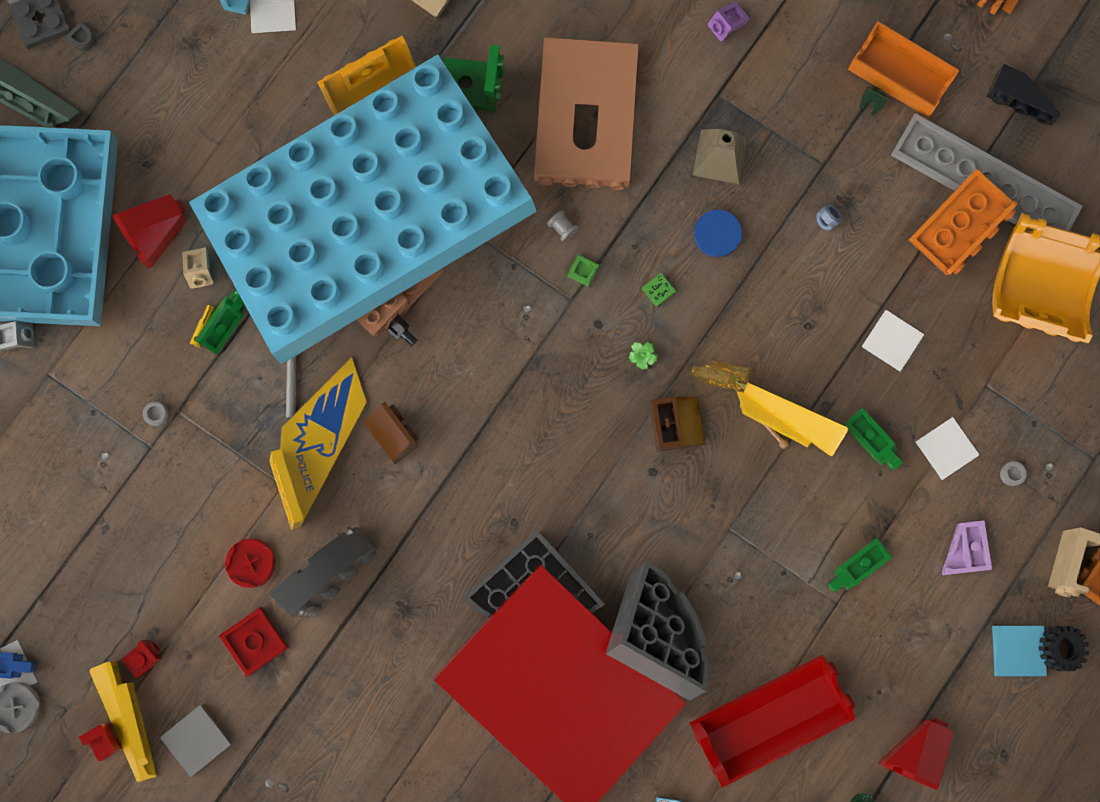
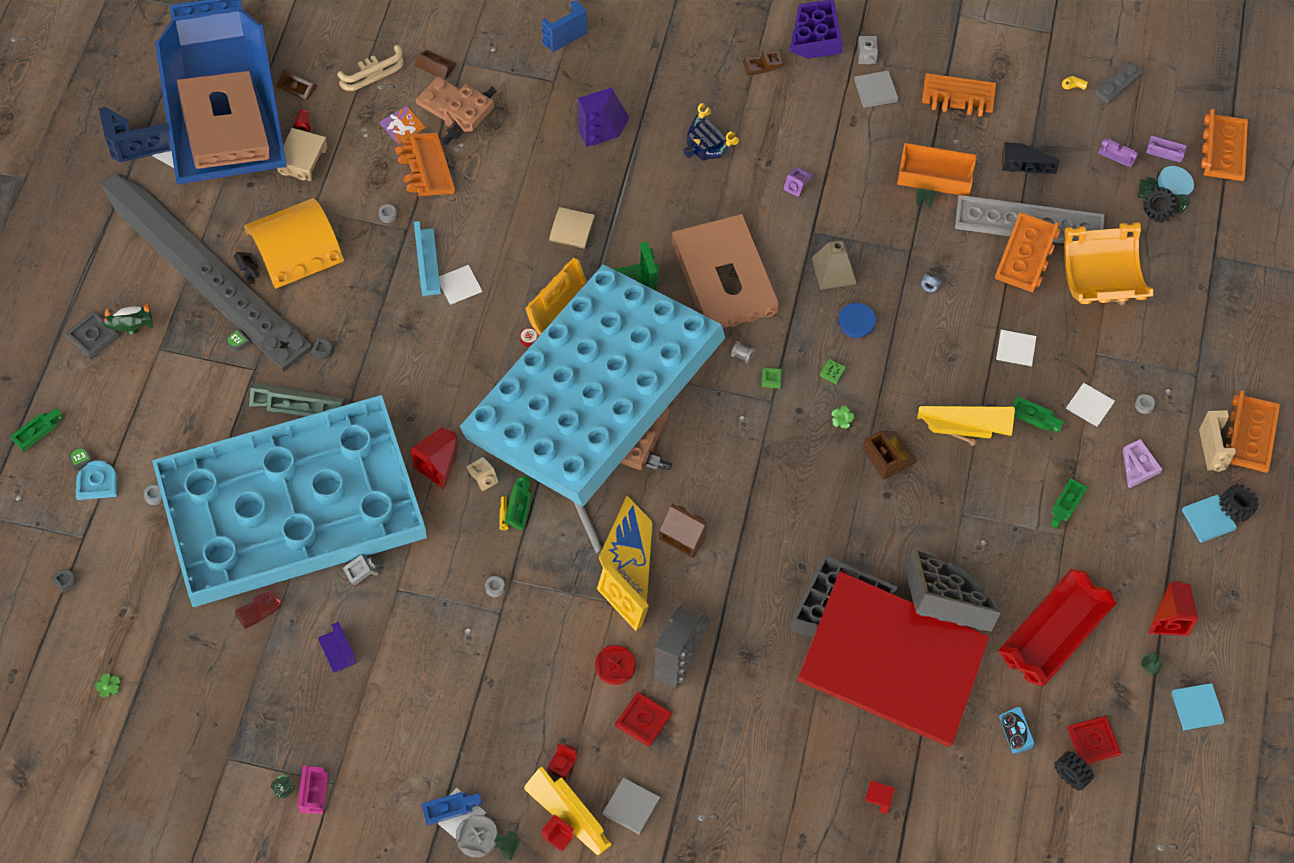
camera: 20 degrees left, 20 degrees down
(39, 734) = (507, 844): none -> clear green tile
(321, 110) = (528, 336): none -> tile
(723, 375) = (908, 408): clear yellow bracket -> none

